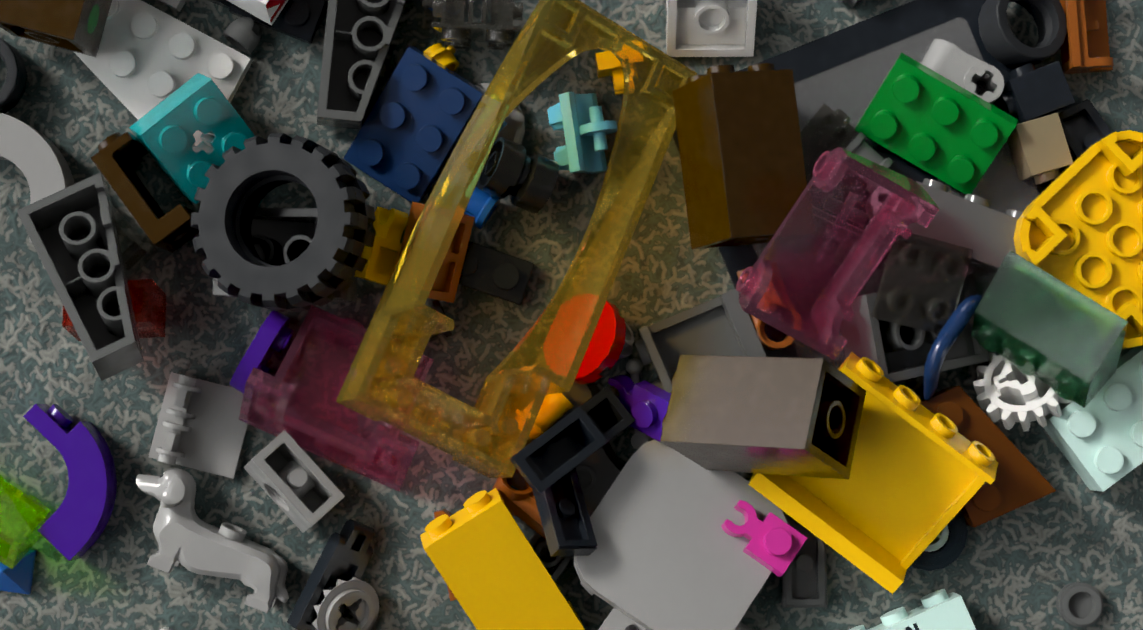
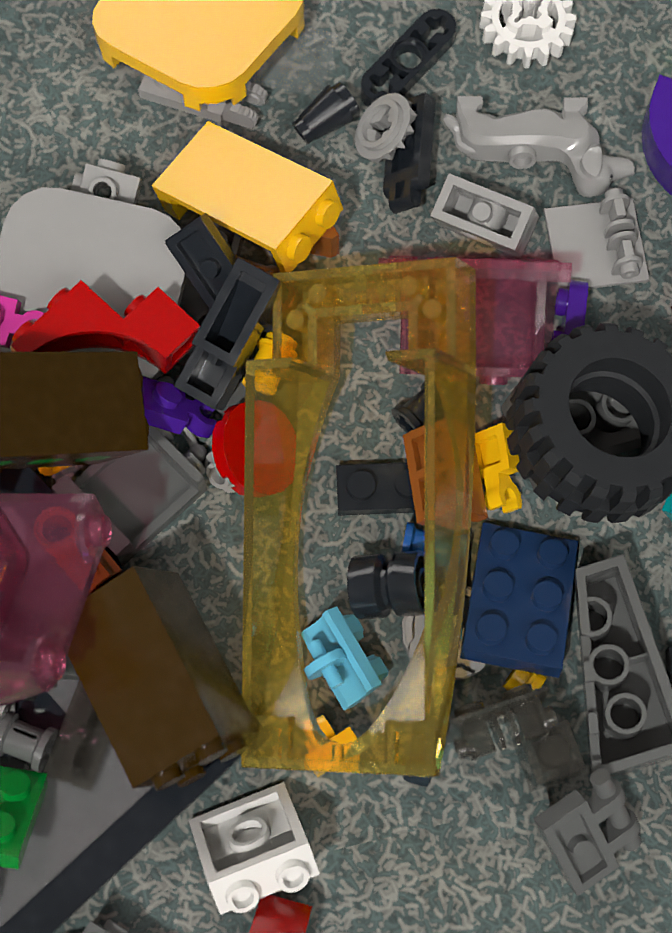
camera: 155 degrees right, 15 degrees down
(698, 502) = (82, 320): none -> red arch

